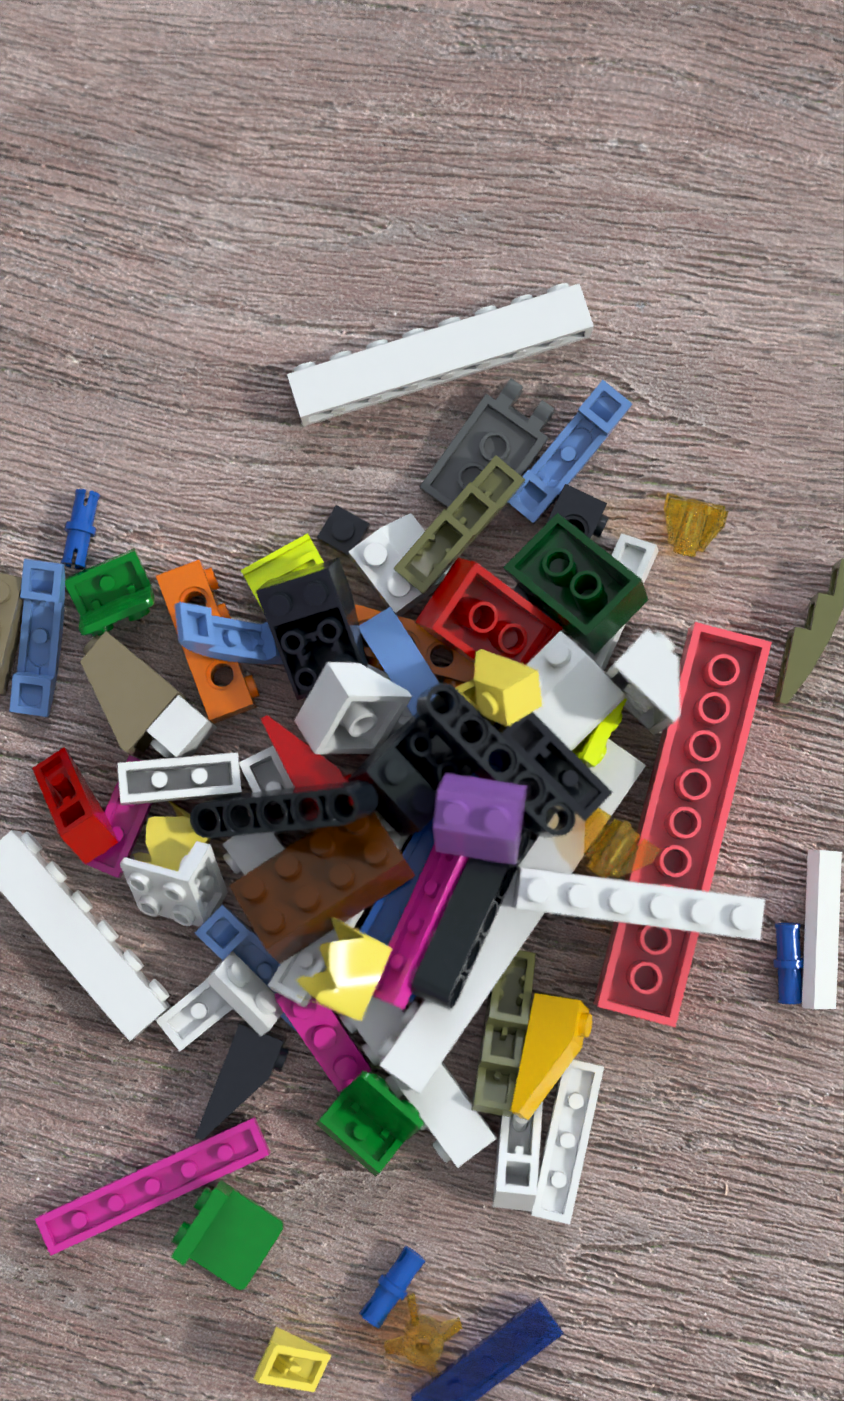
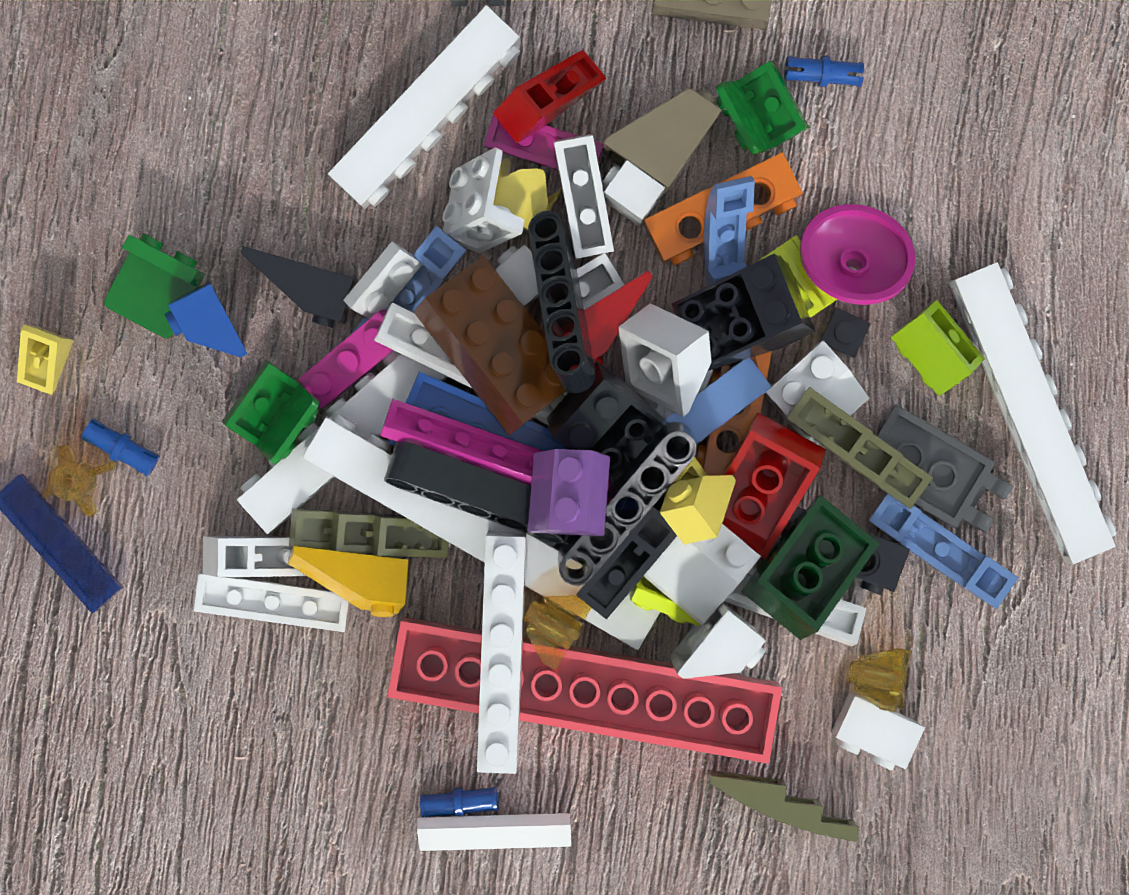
camera: 80 degrees right, 5 degrees up
(39, 638) = (711, 43): medium blue slope -> none
(152, 1185) = (193, 209): dark pink plate -> none
(193, 1015) = (358, 232): white plate -> none
(253, 503) = (862, 240): none -> dark pink dish
(268, 1184) = (204, 321): none -> blue slope
(350, 973) = (411, 381): light yellow piece -> none
(367, 440) = (937, 348): none -> lime brick
(746, 532) = (879, 732): none -> white brick

